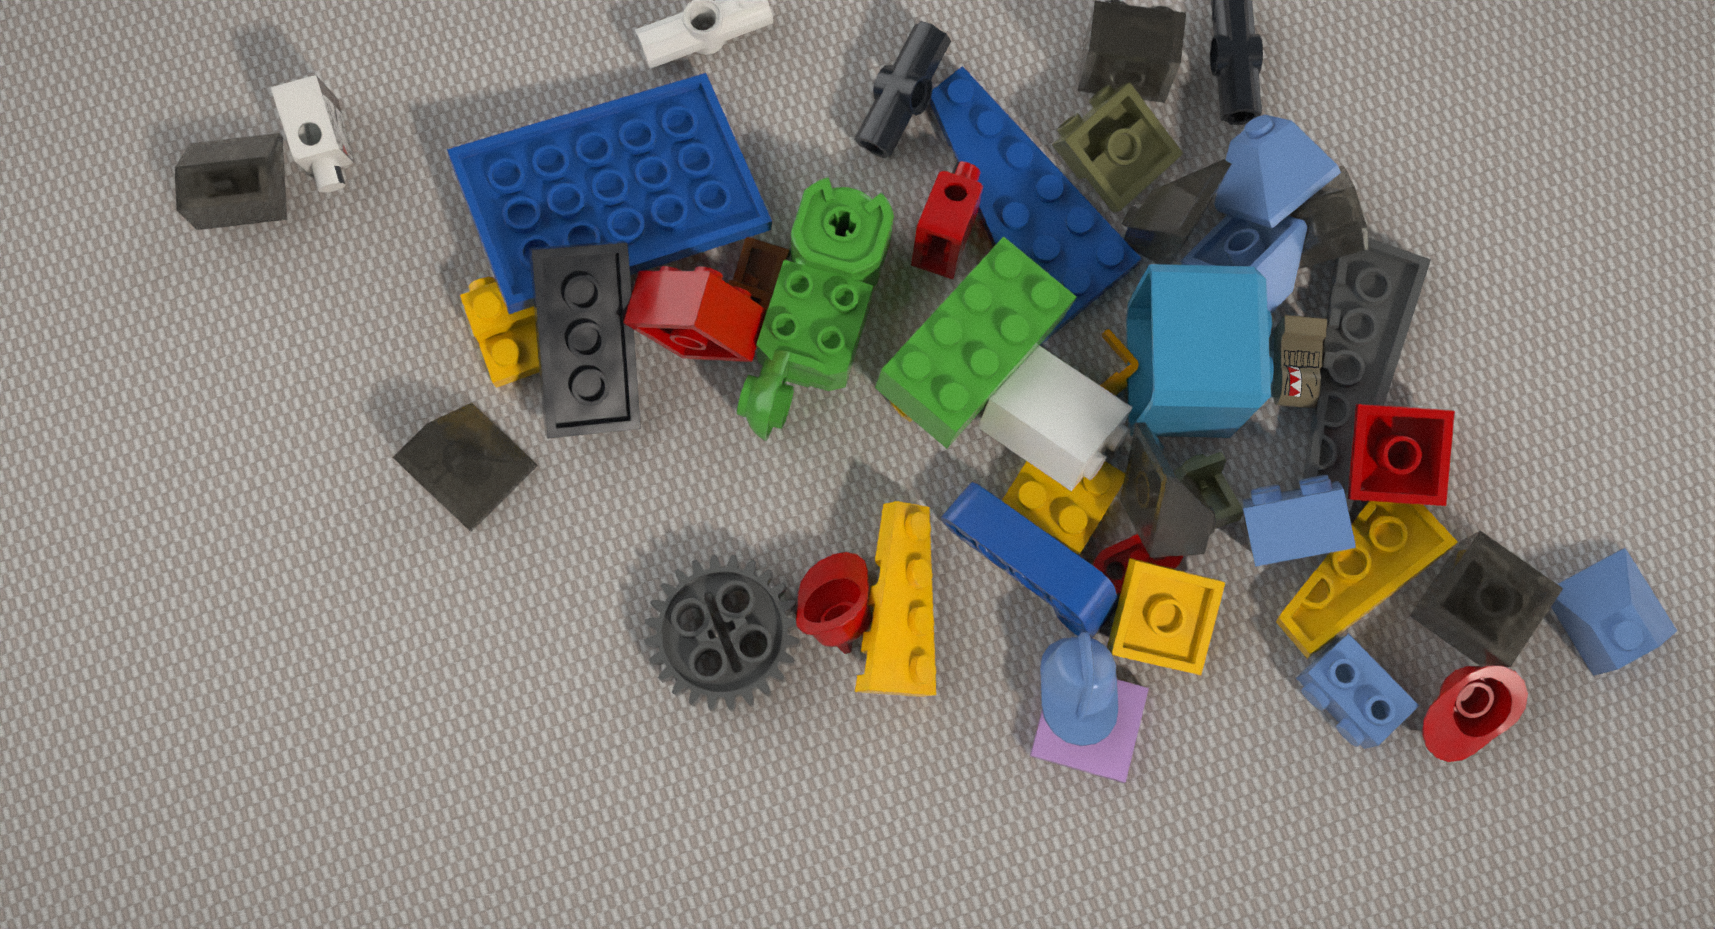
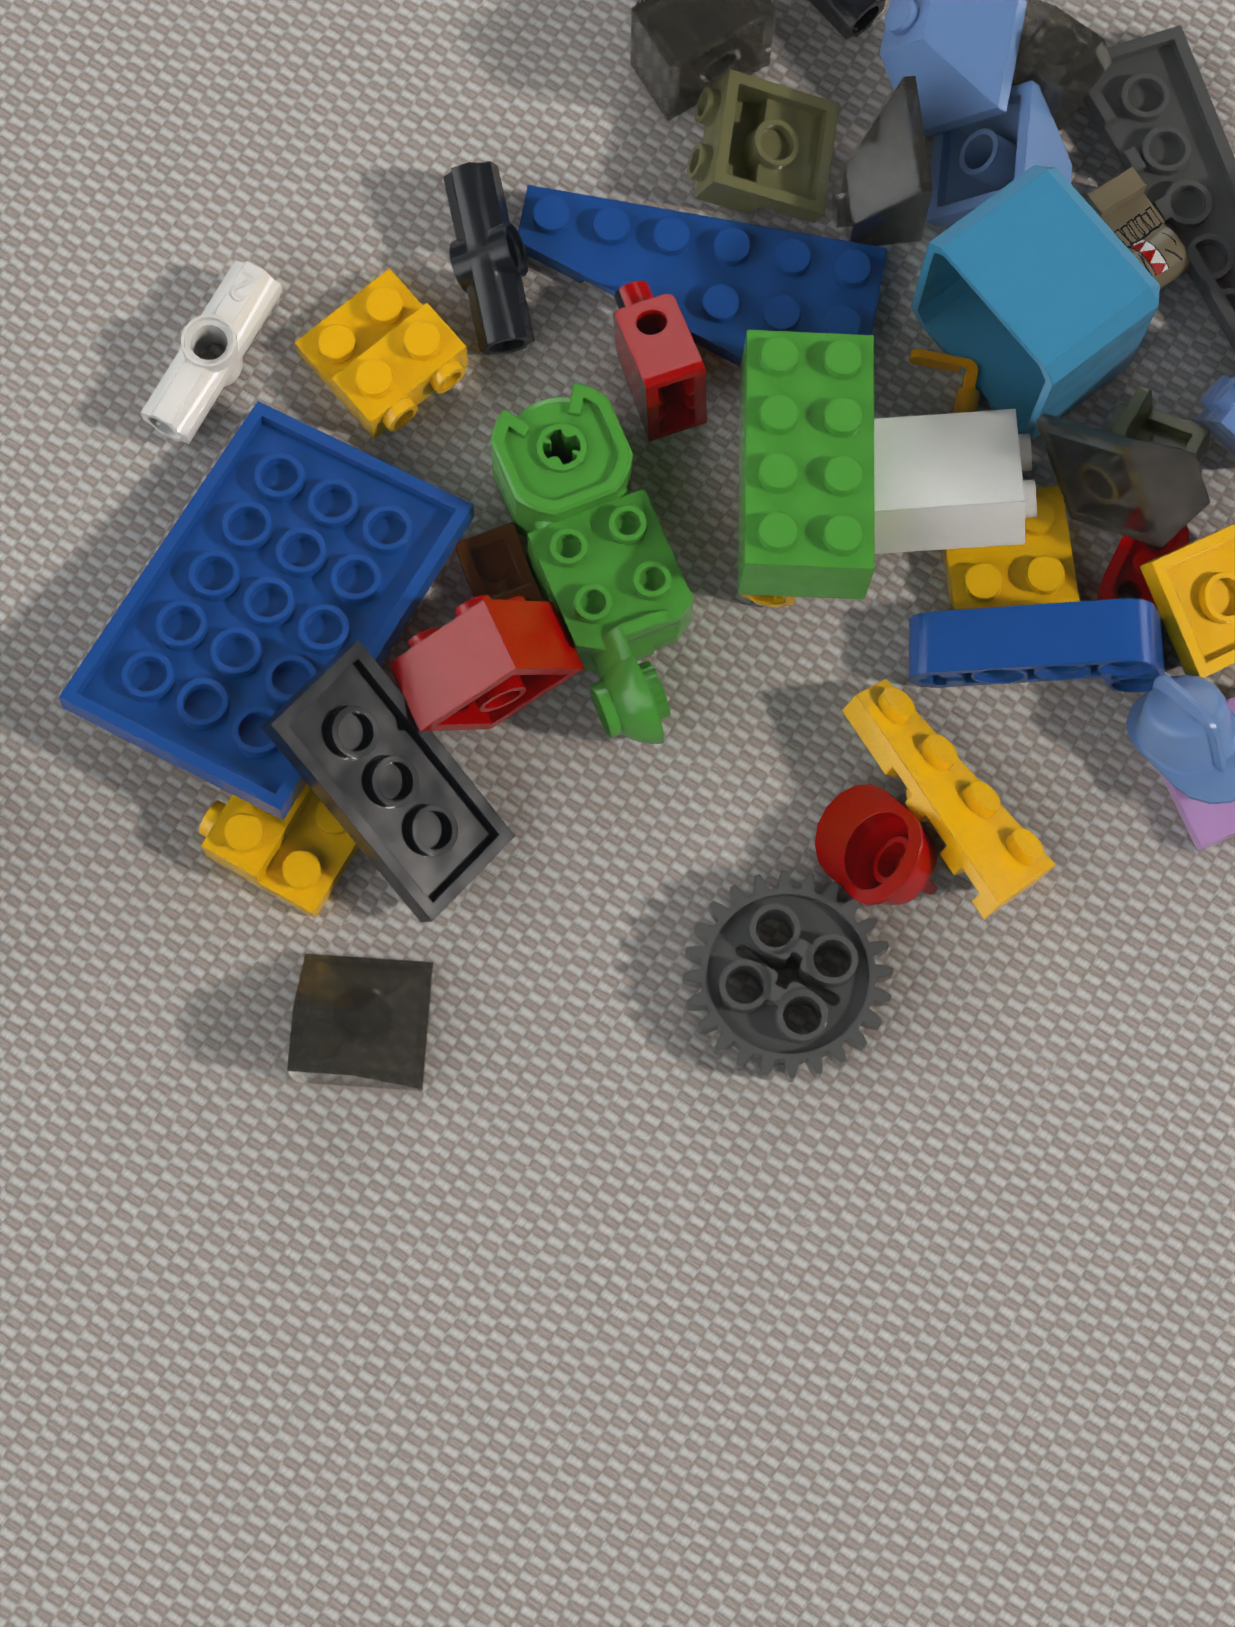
camera: 40 degrees left, 0 degrees up
(800, 101) = (384, 354): none -> yellow plate

